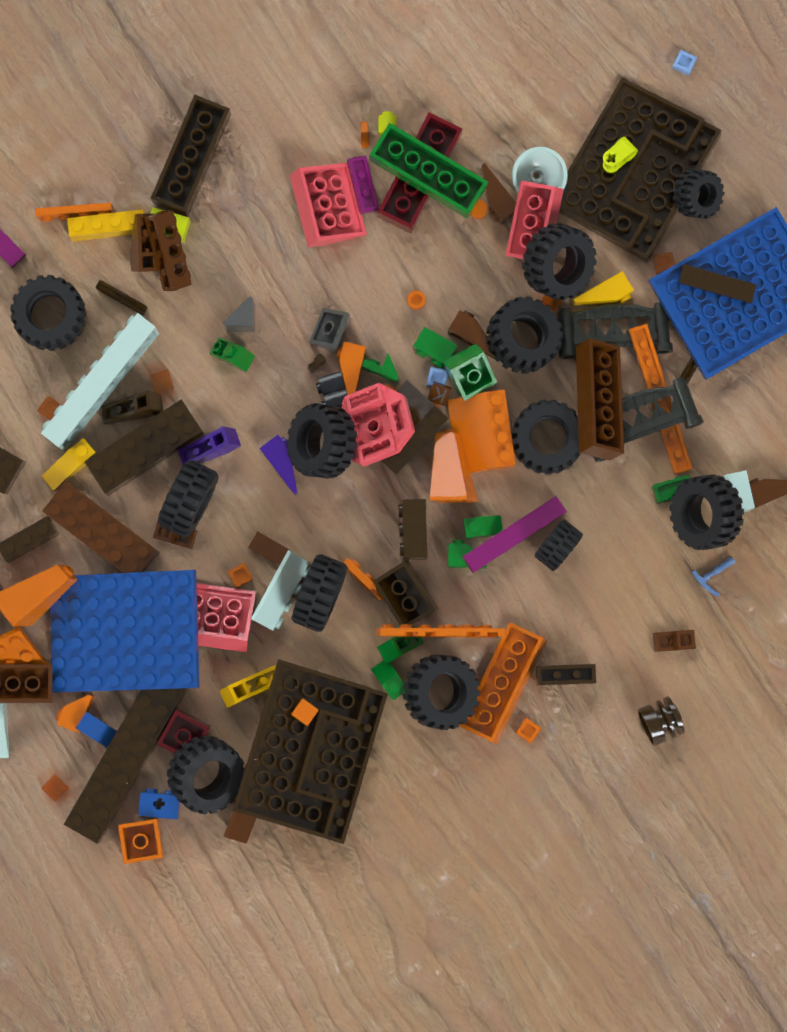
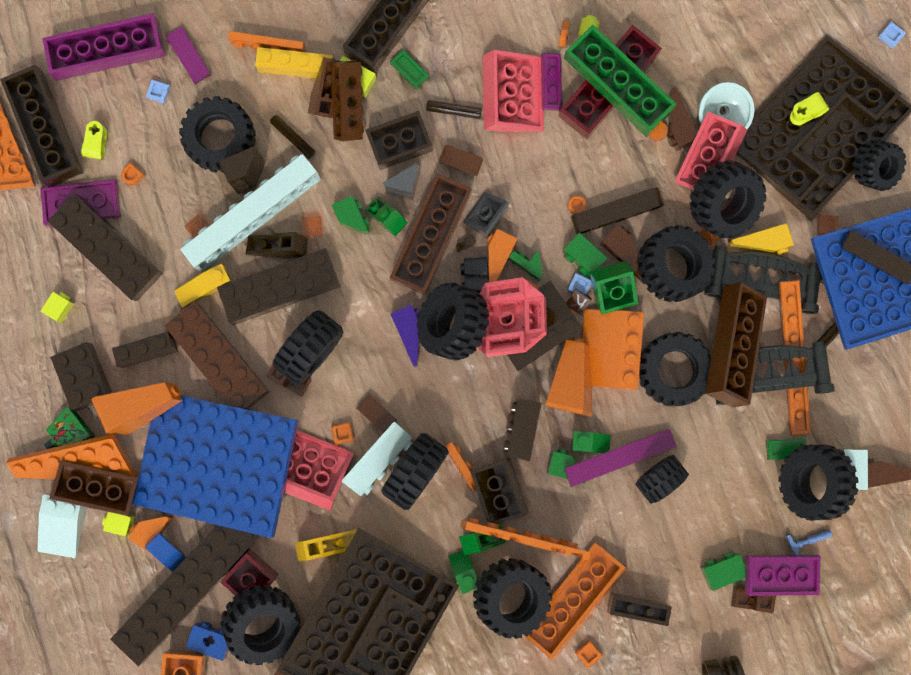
camera: 20 degrees right, 0 degrees up
(42, 713) = (118, 523): none -> neon yellow brick
(54, 787) = (113, 598): clear orange tile -> none
(83, 341) = (243, 169): none -> dark brown slope
(196, 362) = (349, 215): none -> green slope
(211, 446) = (344, 300): dark purple slope -> none
(221, 204) = (409, 69): none -> green tile
(227, 277) = (399, 140): none -> dark brown brick
(273, 234) = (453, 109): none -> dark brown axle
(280, 362) = (431, 234): none -> reddish brown brick
(293, 282) = (461, 160): none -> reddish brown slope
(304, 712) = (372, 587): orange tile -> none
(456, 296) = (617, 210): none -> dark brown beam
(639, 619) = (724, 571): none -> green brick
(695, 609) = (782, 575): none -> magenta tile

